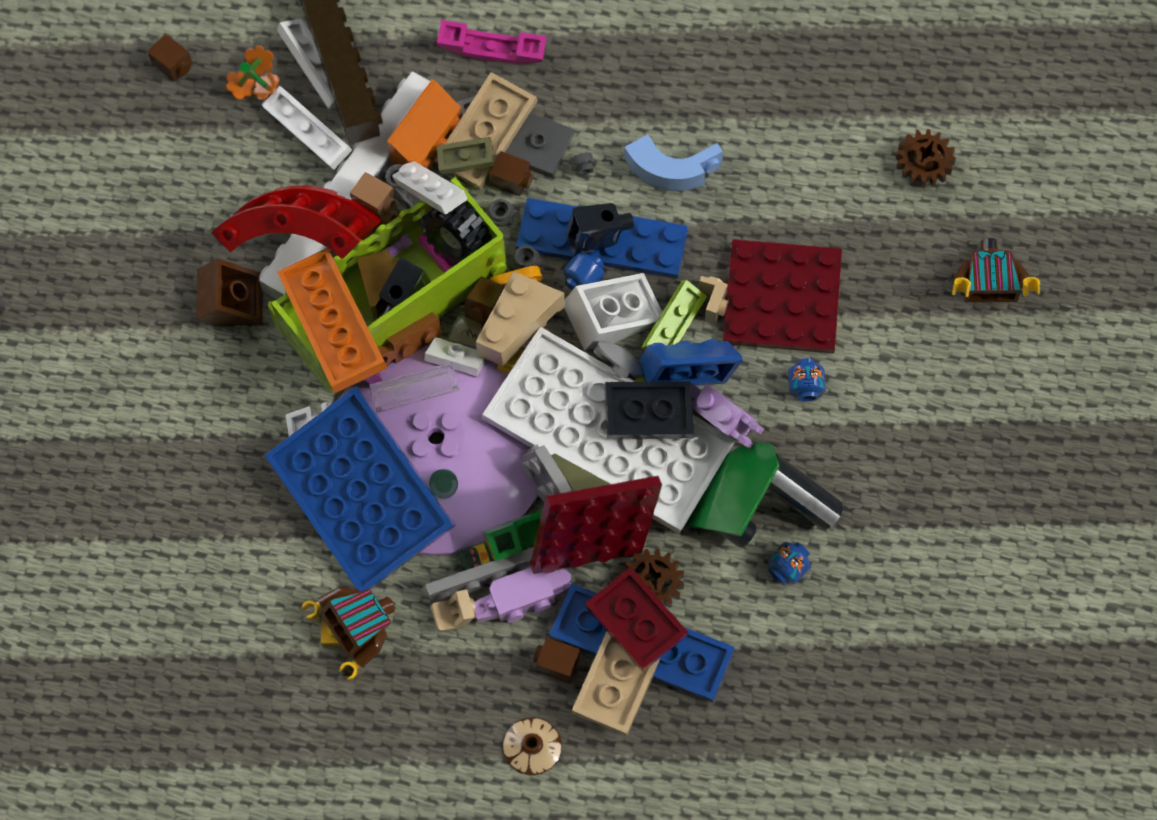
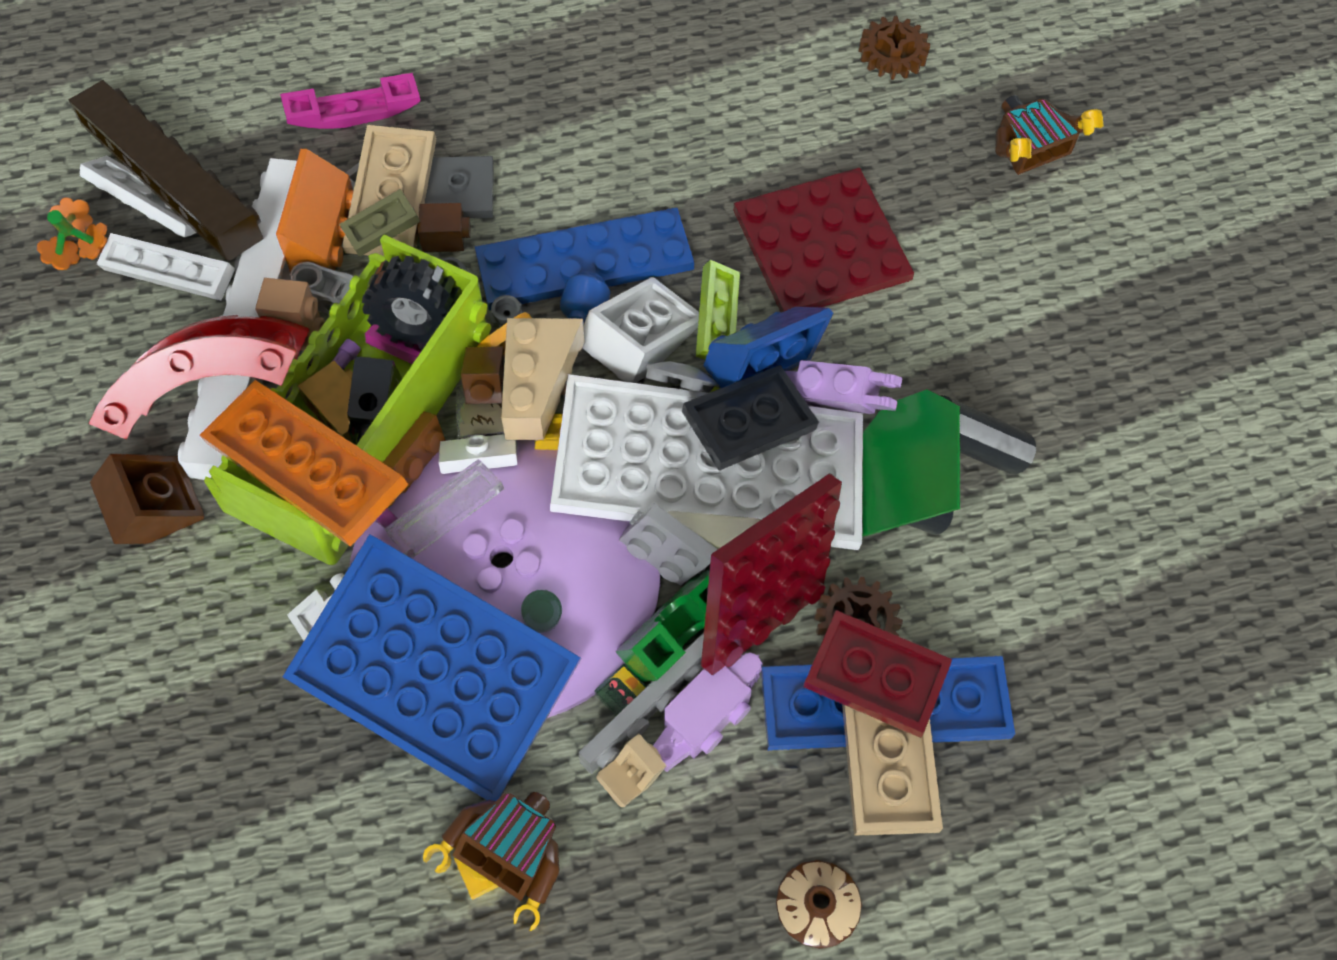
camera: 30 degrees left, 5 degrees down
(429, 187) = (356, 261): white plate -> none
(556, 660) = (795, 774): reddish brown brick -> none
(583, 163) = (522, 187): dark grey plate -> none
(596, 227) = (577, 240): black torso -> none
(670, 172) = (622, 160): light blue arch -> none
(717, 302) = (749, 261): tan bracket -> none
(789, 563) = (1005, 528): blue head -> none
(806, 380) = (904, 316): blue head -> none

